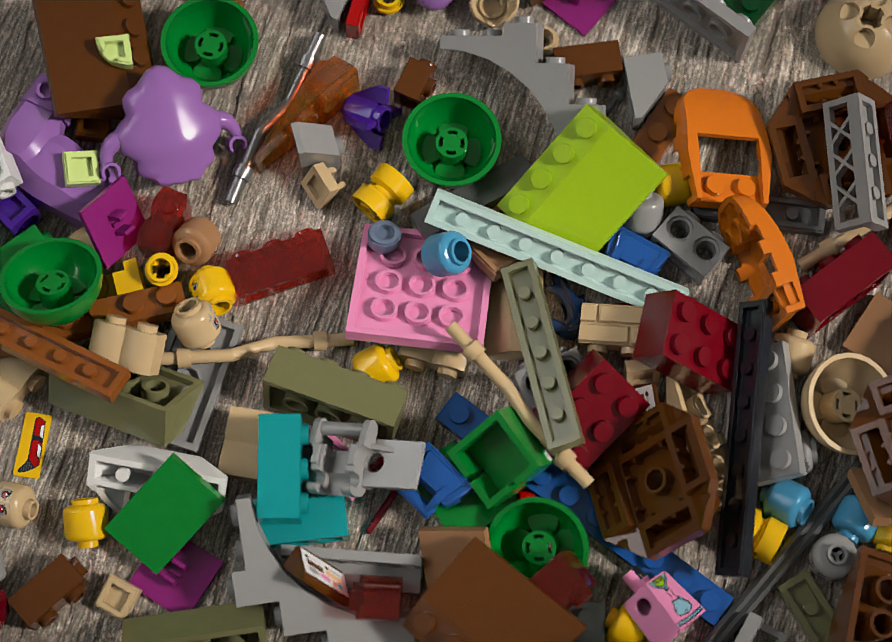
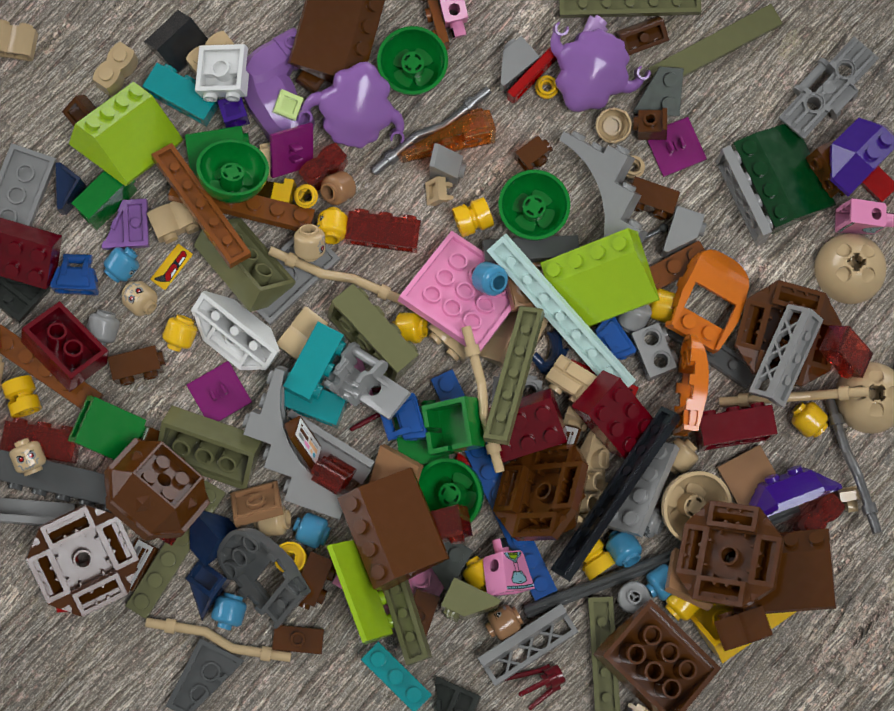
camera: 30 degrees right, 5 degrees up
(116, 50) = (348, 38): yellowish green tile -> none
(118, 597) = (176, 389): tan tile -> none
(130, 346) = (259, 236): tan brick -> none
(165, 513) = (229, 353): green tile -> none
(368, 114) = (492, 160): dark purple brick -> none
(384, 236) = (458, 246): sand blue tile -> none

